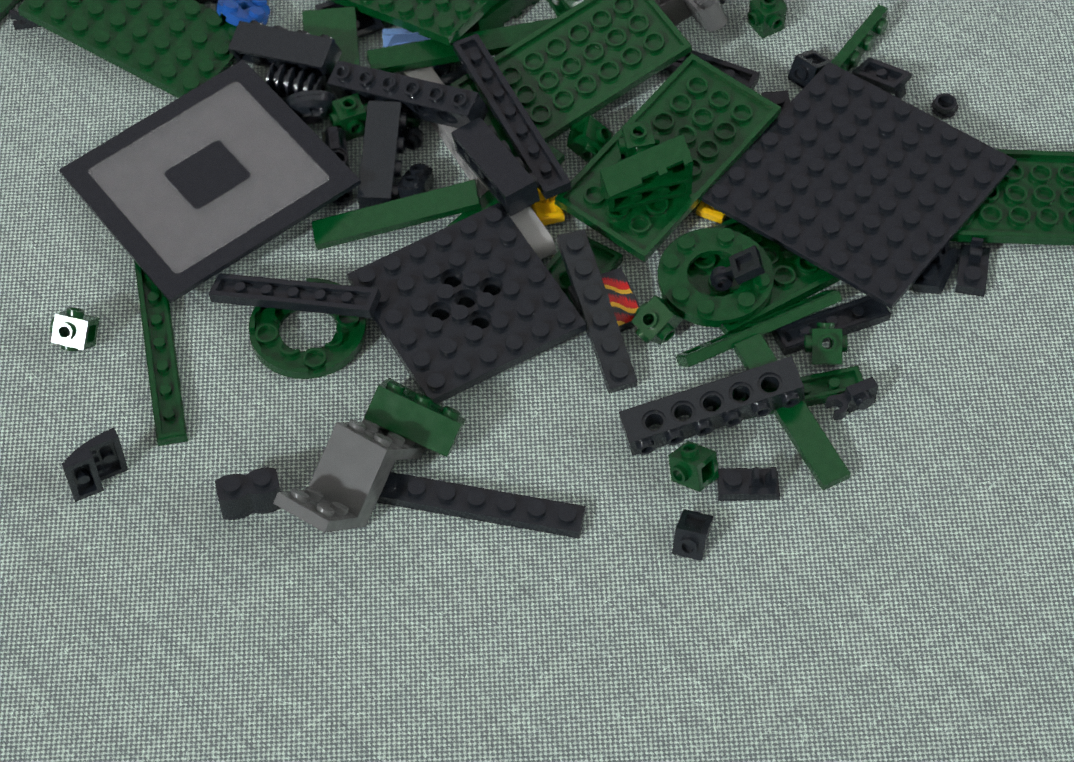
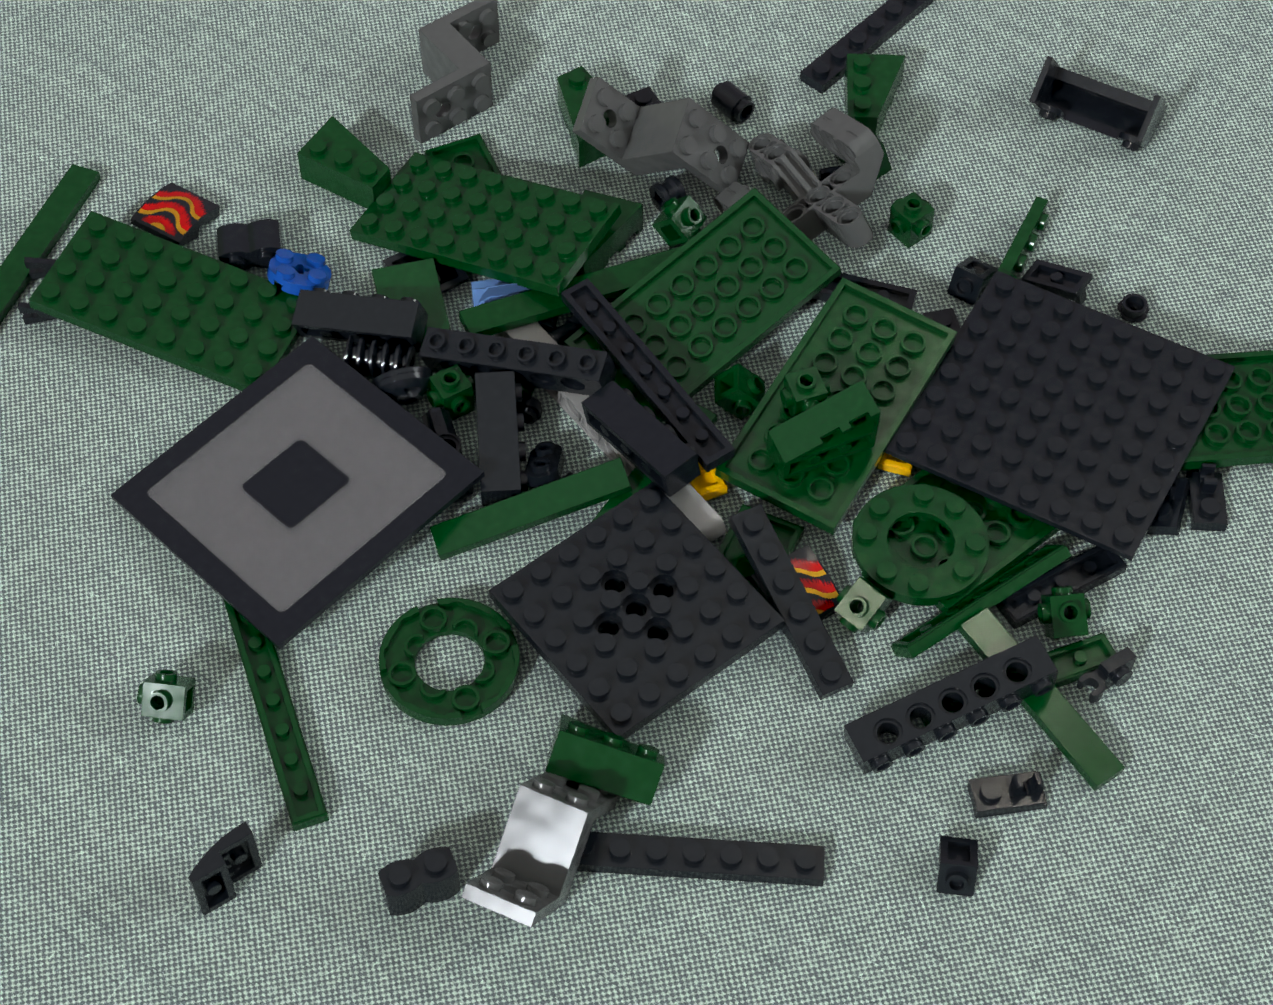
camera: 10 degrees left, 0 degrees up
(295, 295) = (431, 624): black plate -> none
(693, 466) = (943, 781): dark green brick -> none
(744, 266) = (955, 529): black plate -> none

